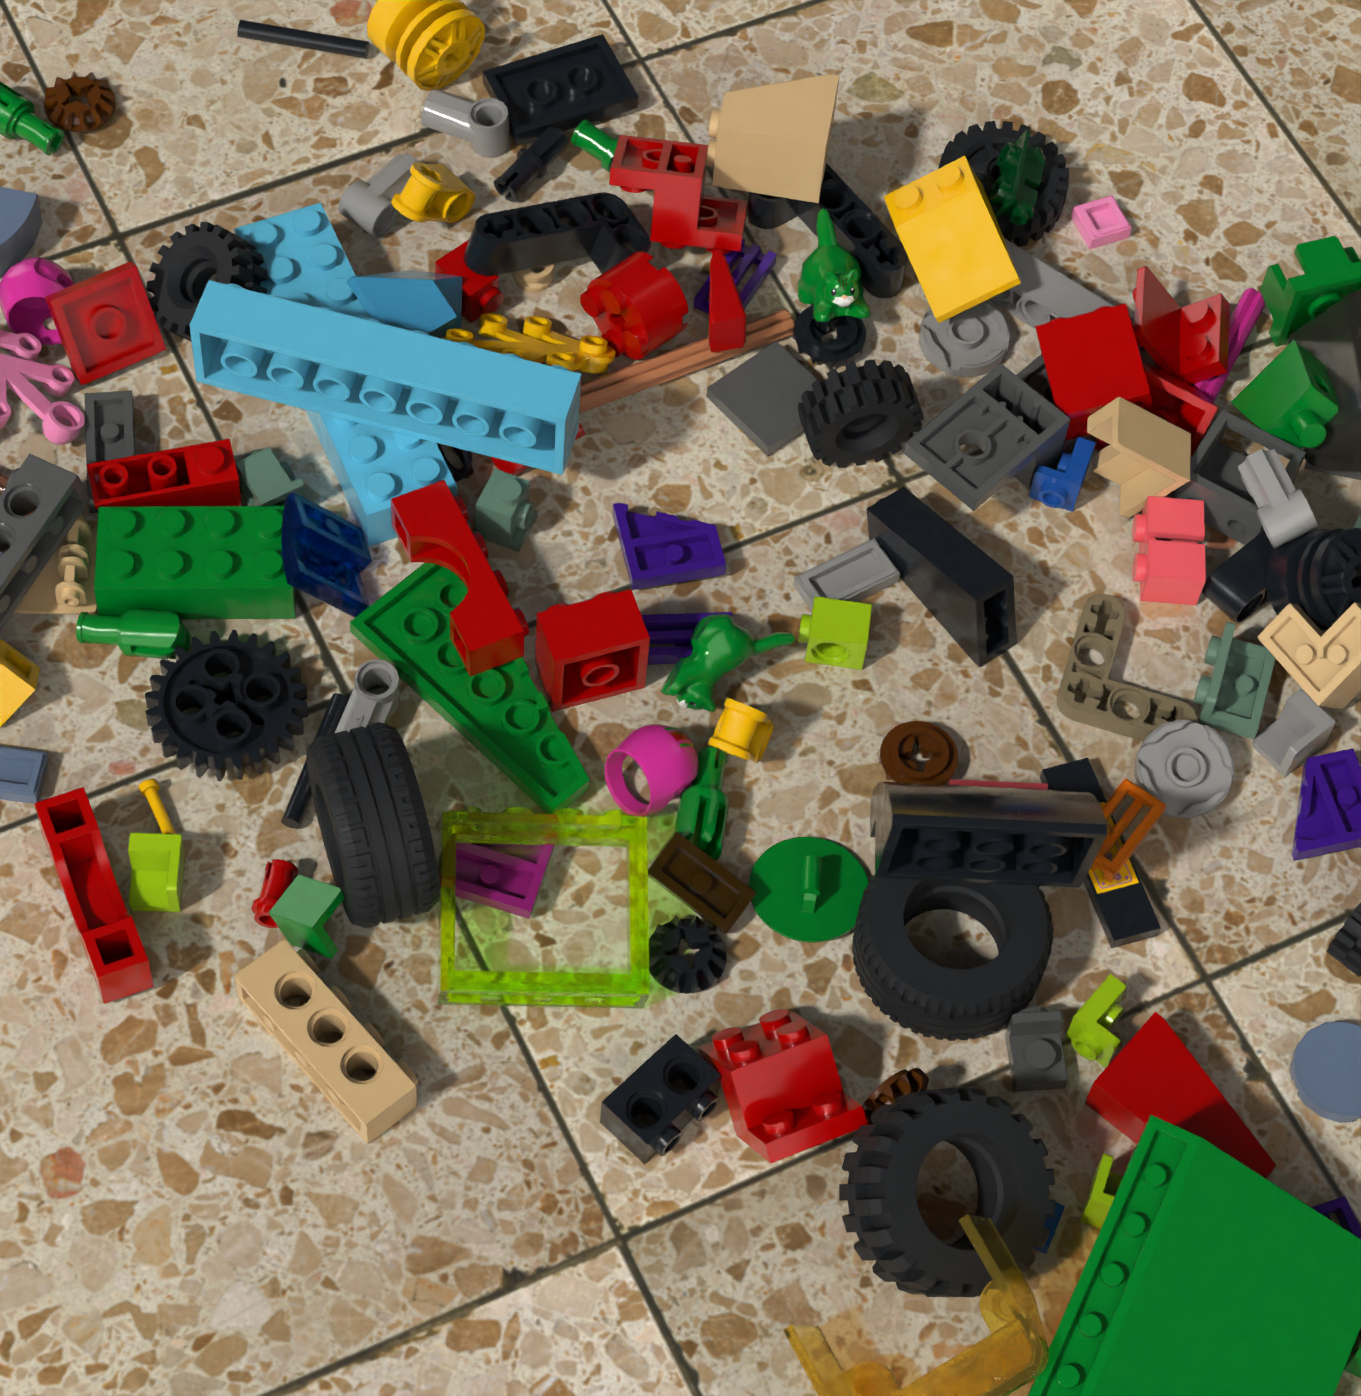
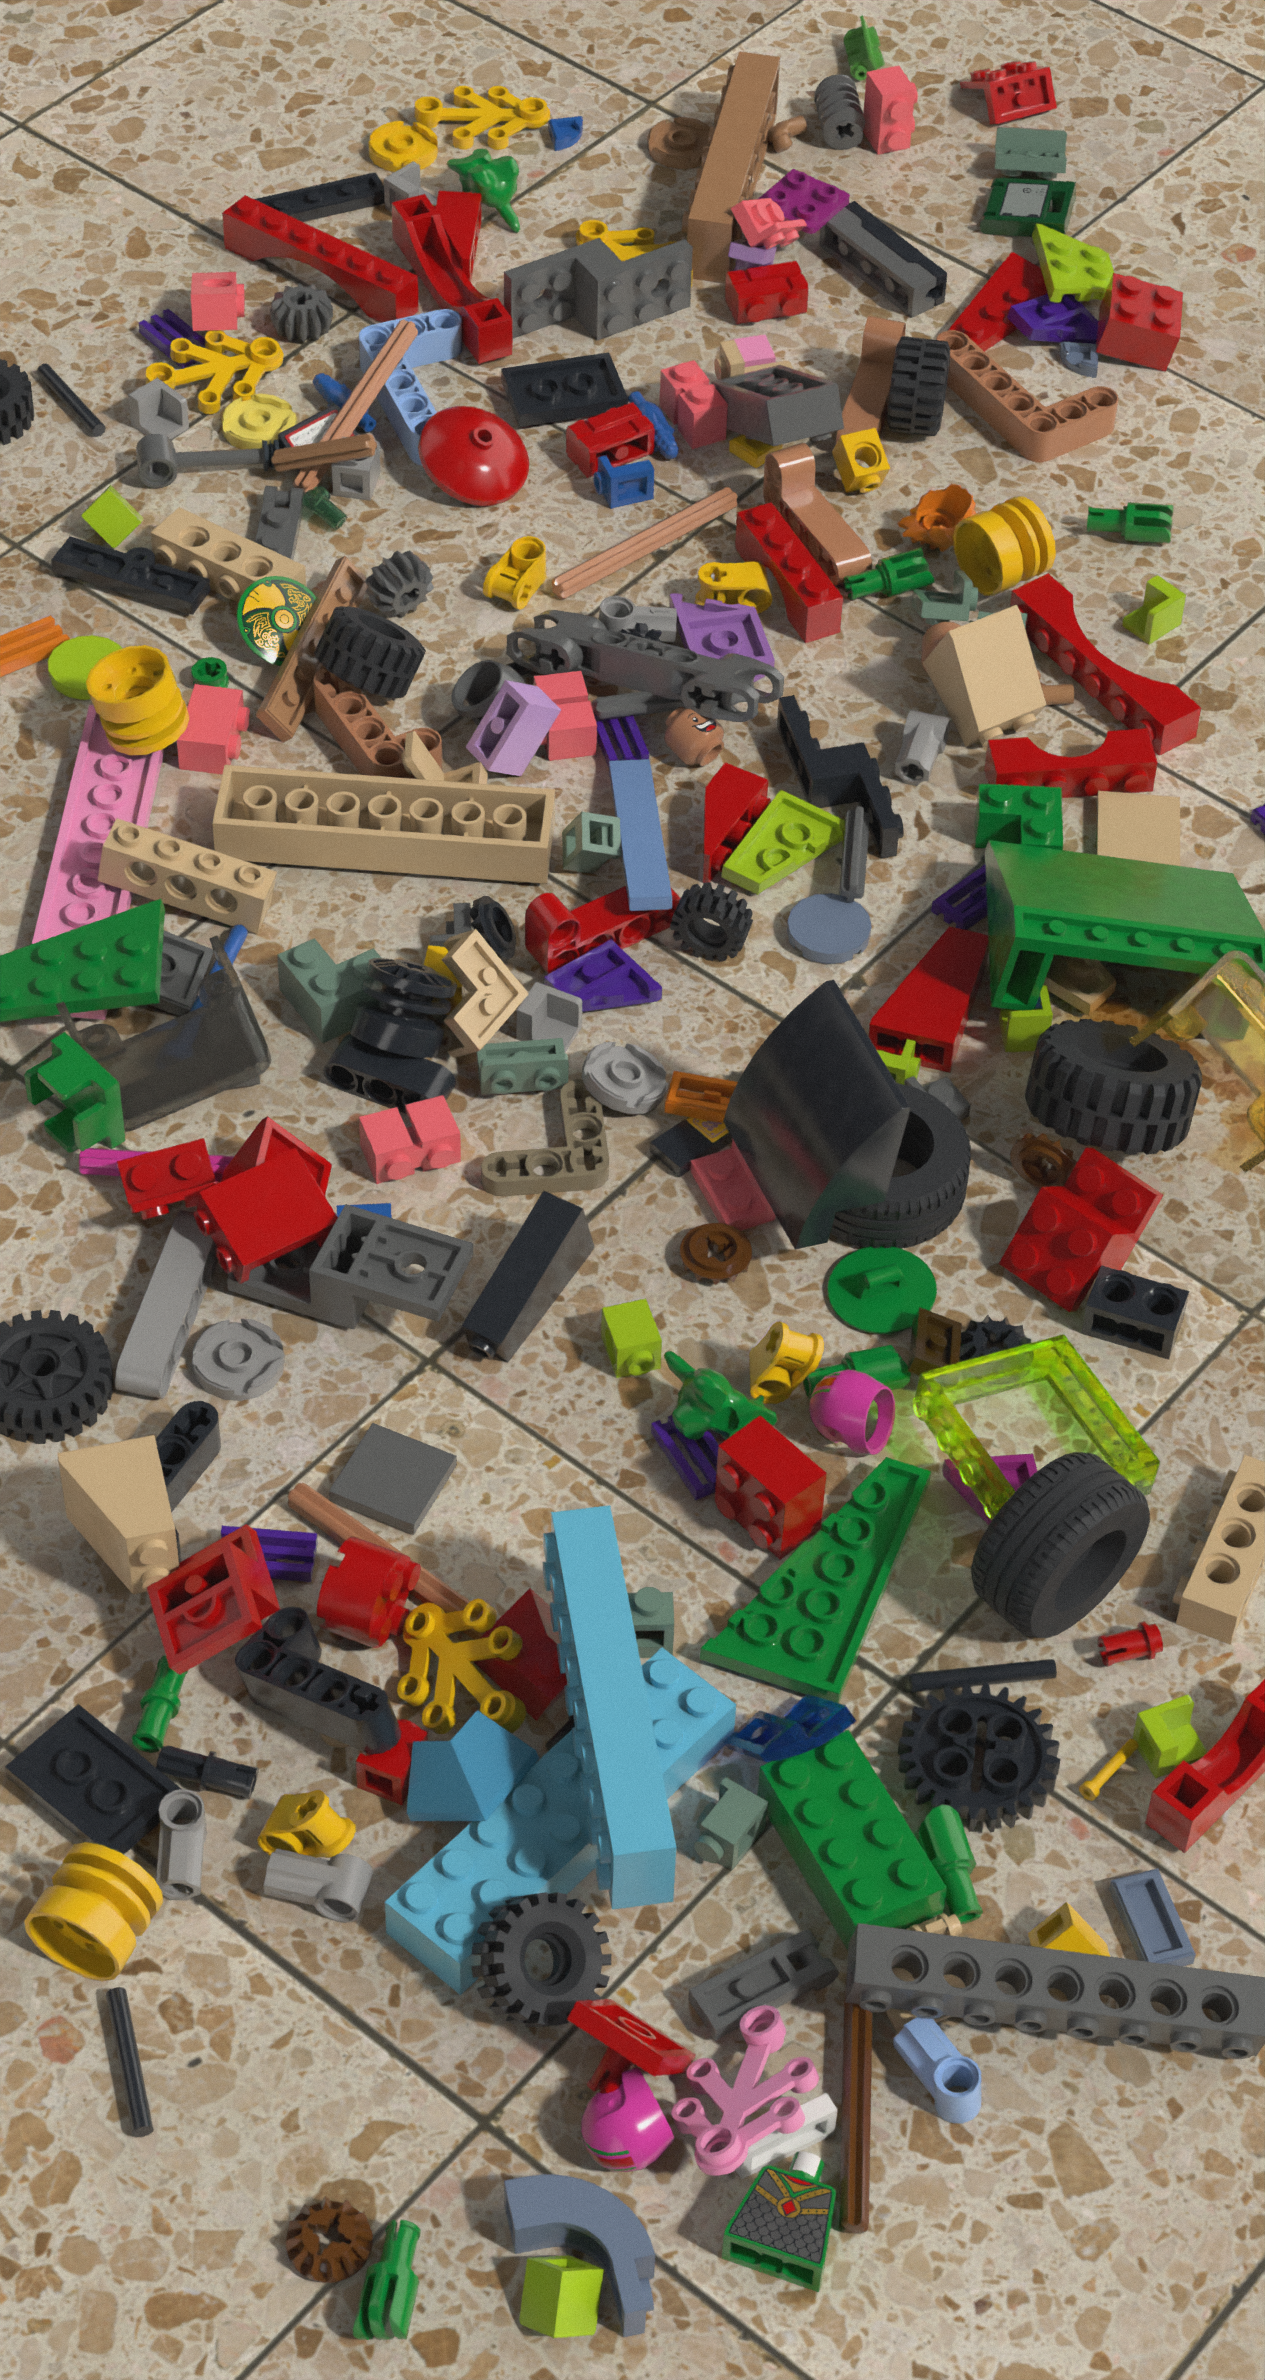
camera: 110 degrees left, 10 degrees down
(171, 477) = (778, 1896): red slope -> none
(303, 913) = (1141, 1592): green panel -> none
(370, 708) = (905, 1645): light grey piece -> none
(436, 531) = (791, 1573): red arch -> none
(666, 548) = (610, 1478): dark purple wing -> none
(726, 310) = (326, 1525): red slope -> none
(831, 277) = (239, 1461): green animal -> none
(848, 342) = (280, 1445): black gear -> none
(849, 575) = (562, 1360): light grey tile -> none
(860, 413) = (406, 1372): black tyre -> none
(952, 239) = (164, 1362): yellow slope -> none
(1018, 166) = (62, 1341): dark green hinge -> none
(1101, 222) = (44, 1293): bright pink tile -> none
(1143, 454) = (348, 1157): tan panel -> none
(1219, 483) = (320, 1101): dark grey piece -> none
(1280, 506) = (364, 1038): light grey piece -> none
(1291, 398) = (226, 1076): green torso -> none

